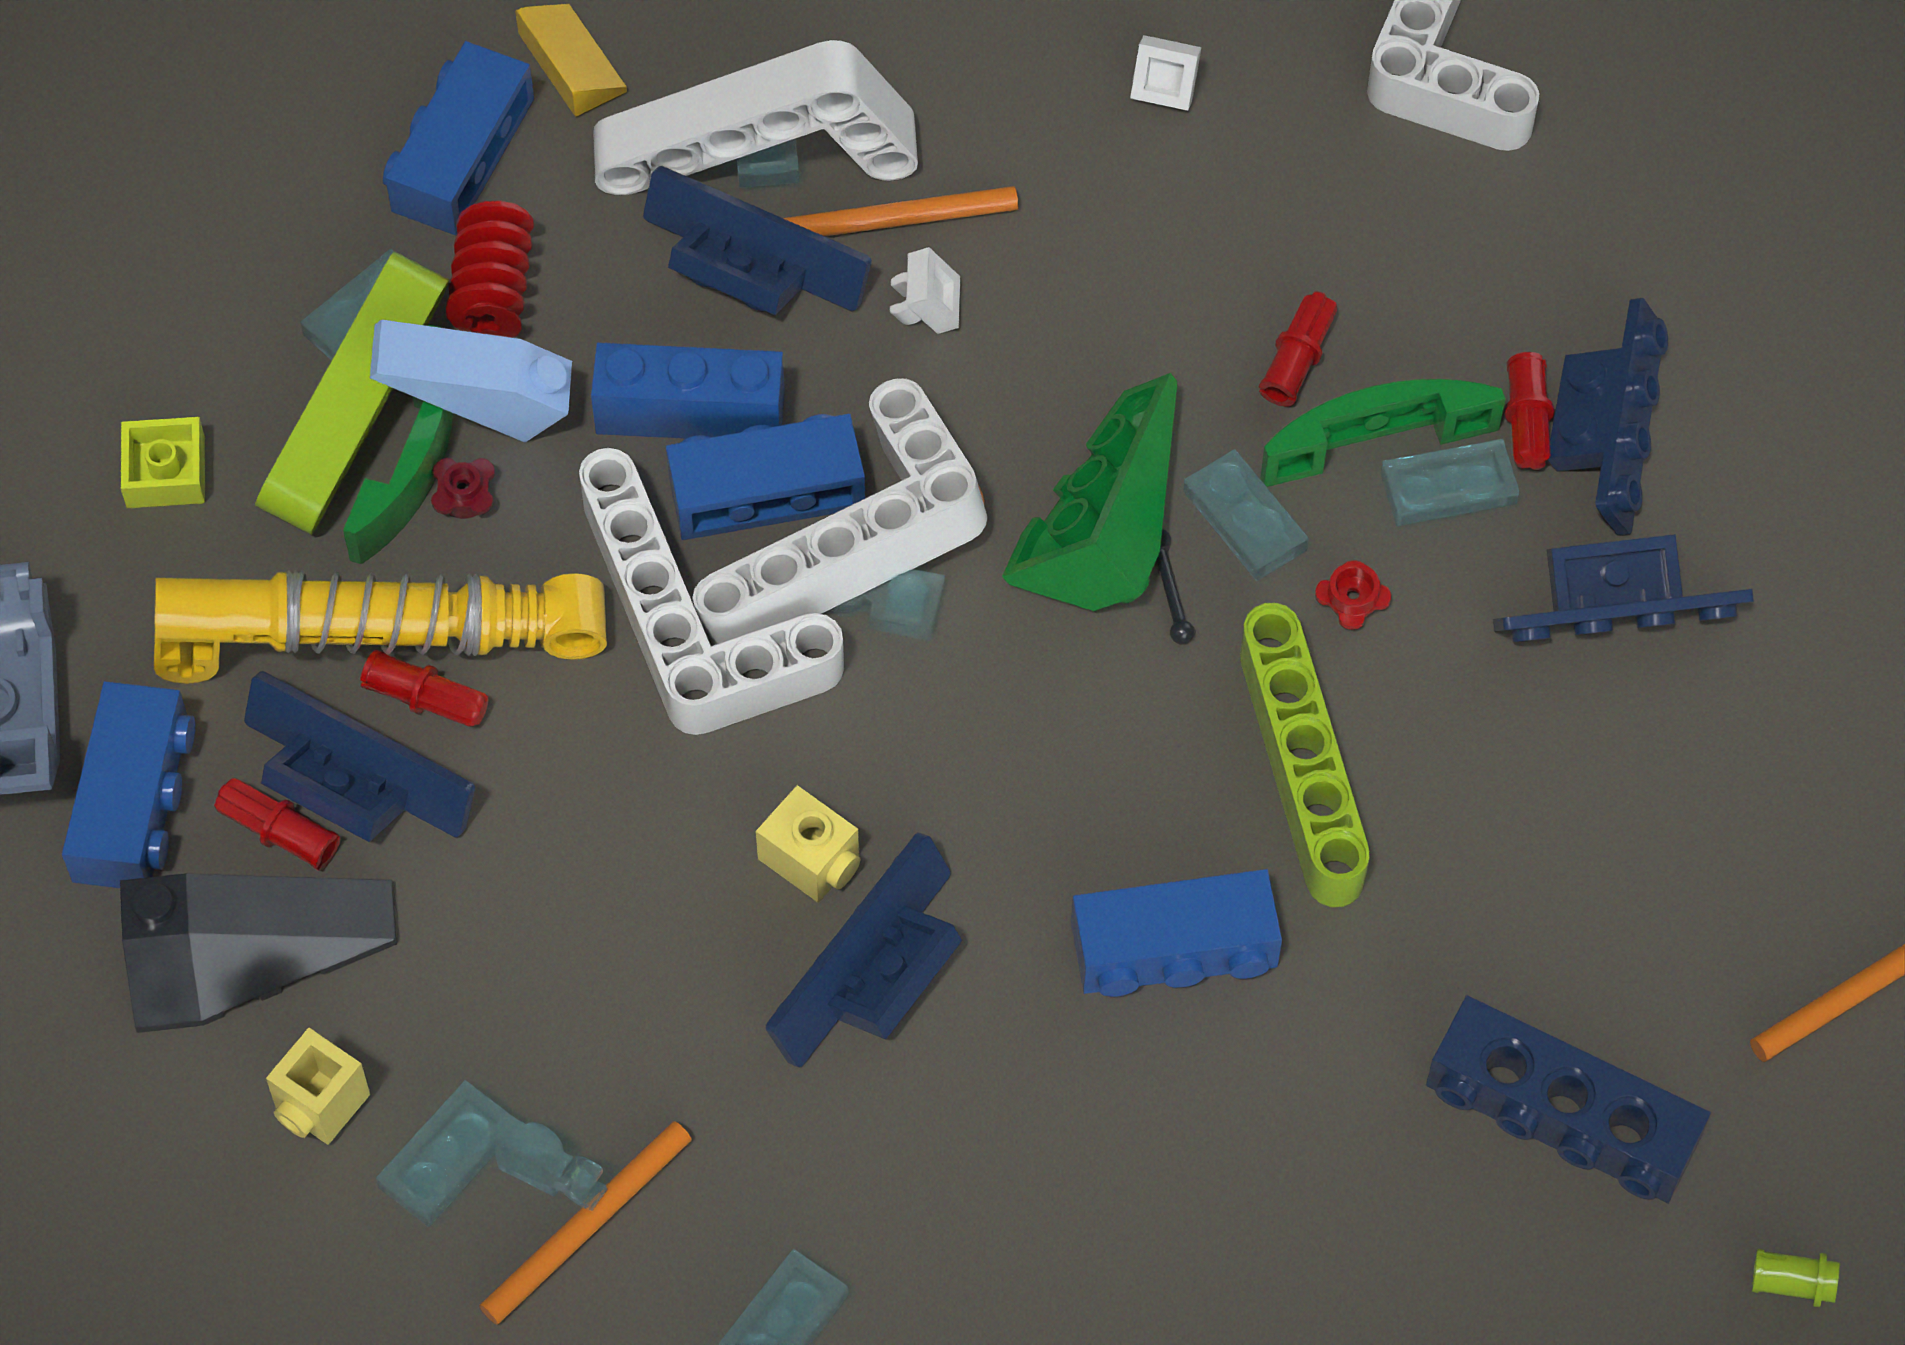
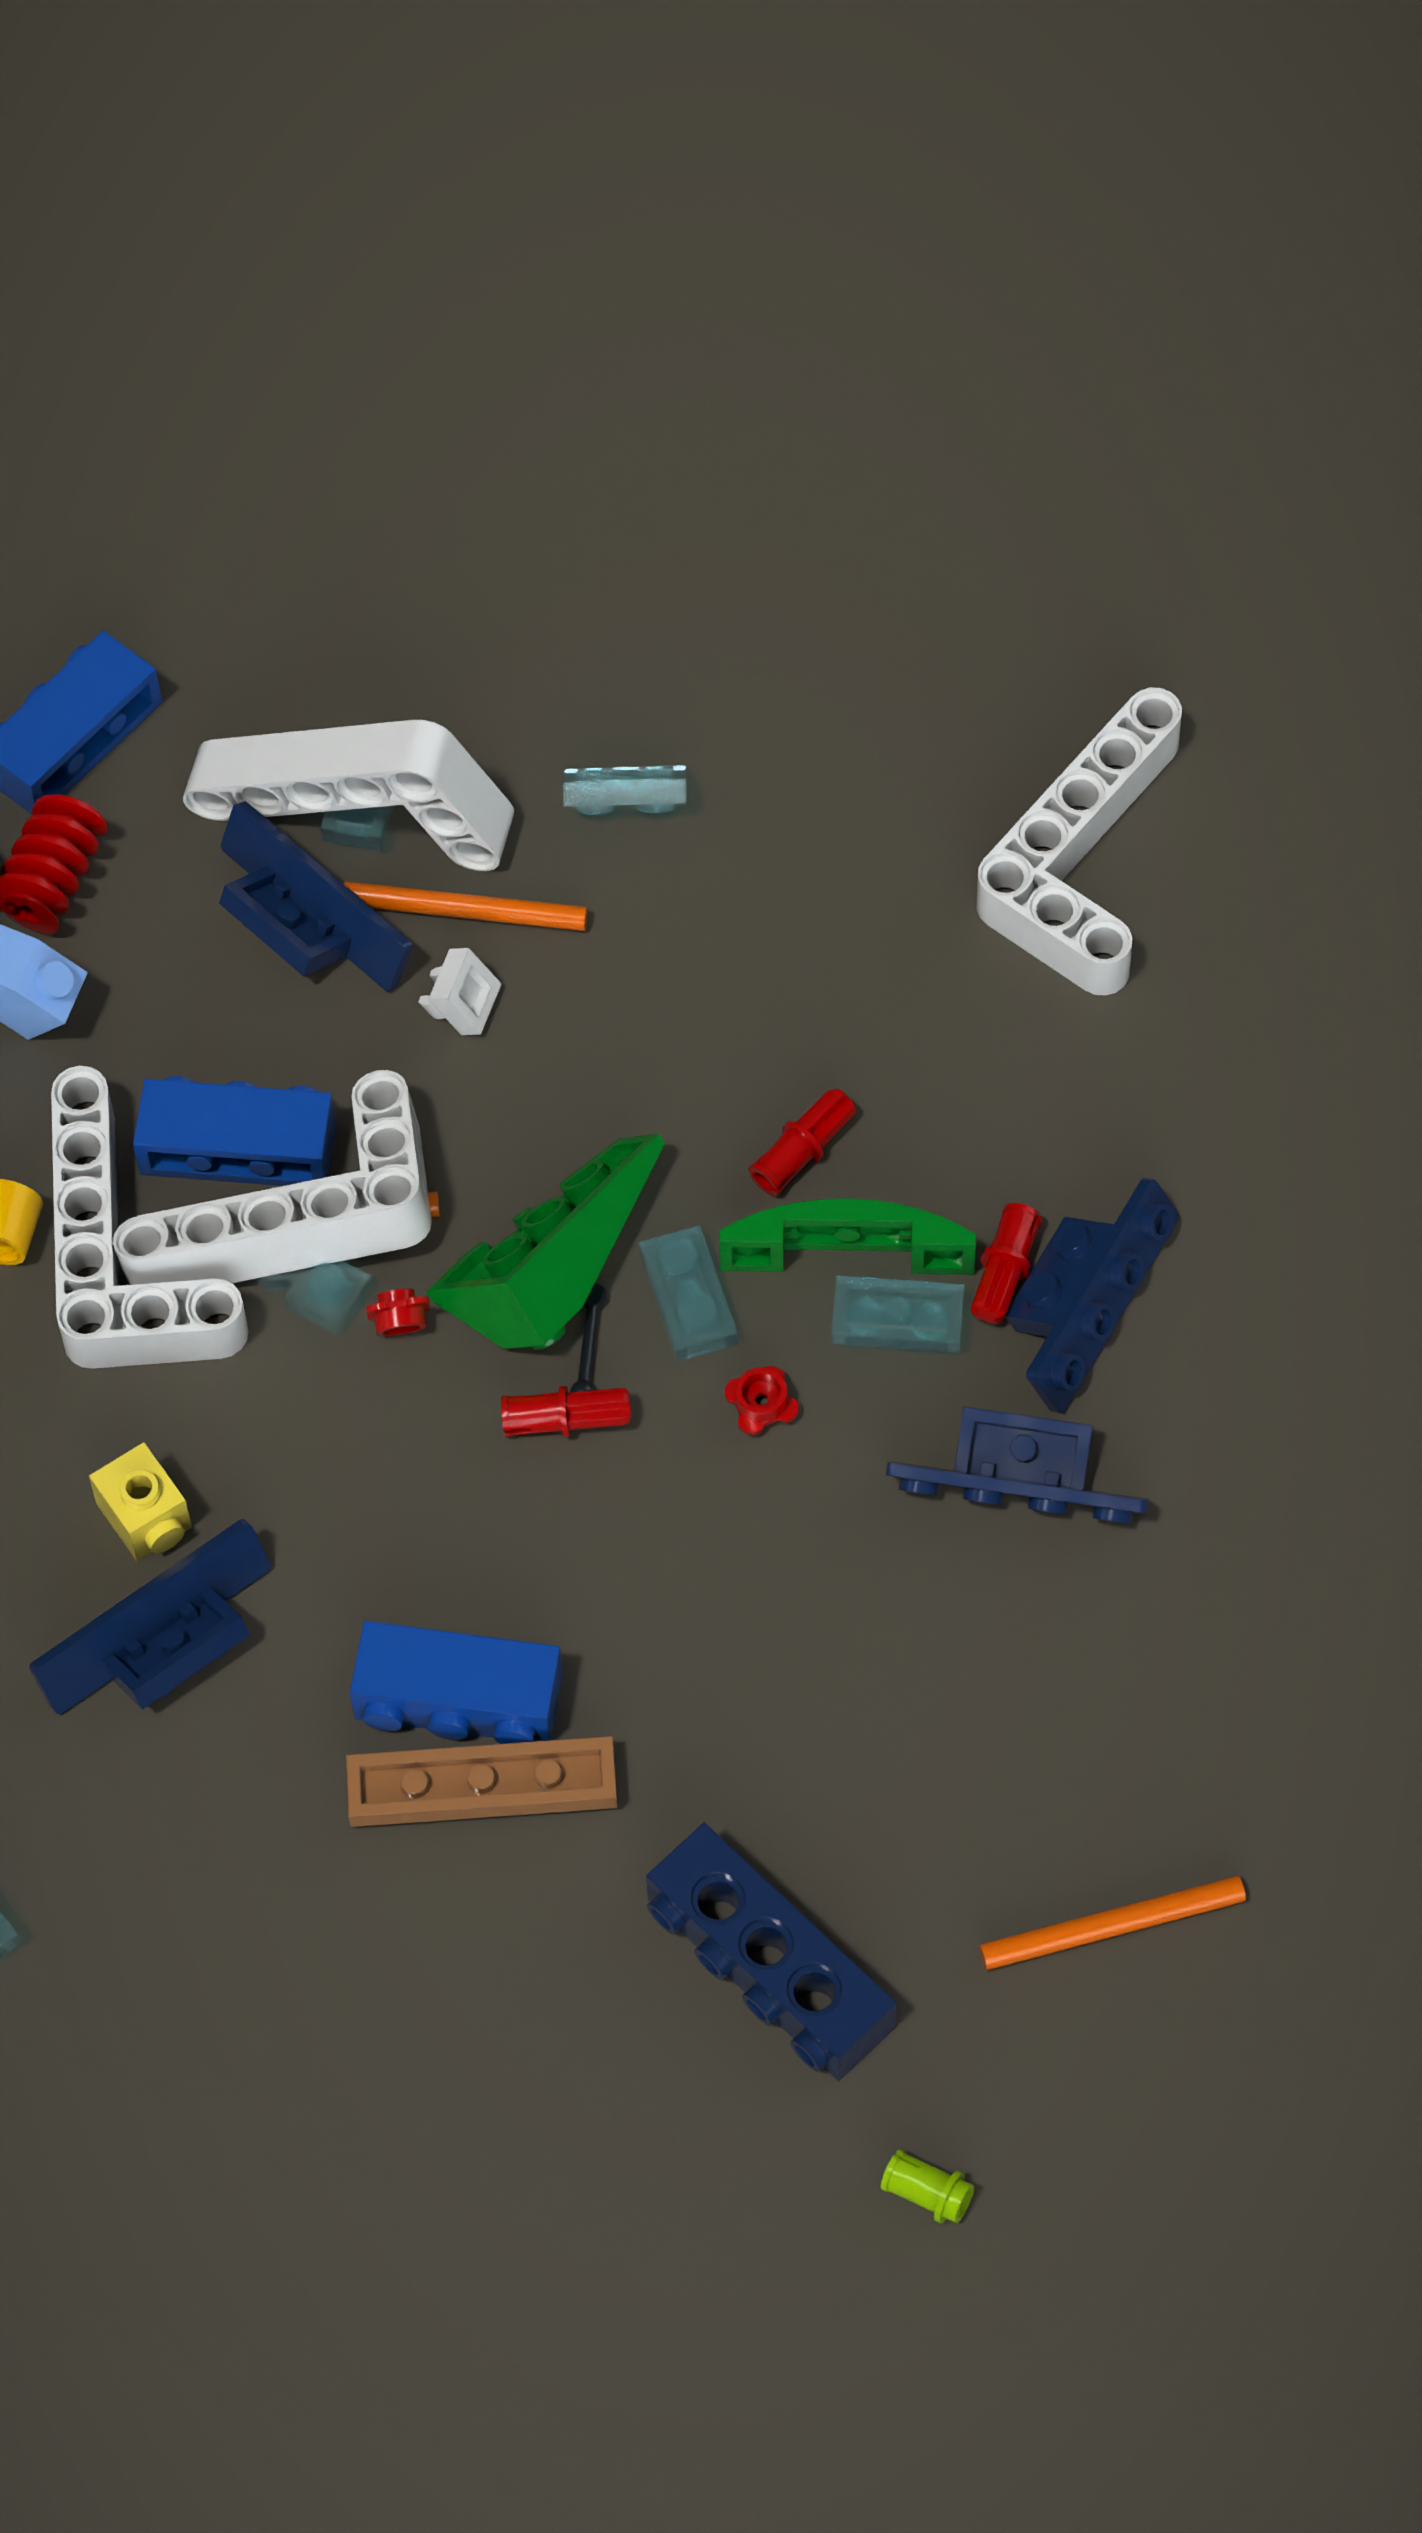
camera: 20 degrees right, 0 degrees up
(569, 56) = (208, 668): yellow slope -> none
(685, 390) = (189, 1029): blue brick -> none
(985, 602) = (398, 1312): none -> red plate
(1033, 63) = (599, 789): none -> clear light blue plate
(1165, 72) = (775, 830): white tile -> none
(1176, 652) = (565, 1411): none -> red axle
(1232, 1017) = (481, 1781): none -> medium nougat plate
(1304, 780) = (647, 1571): lime beam -> none

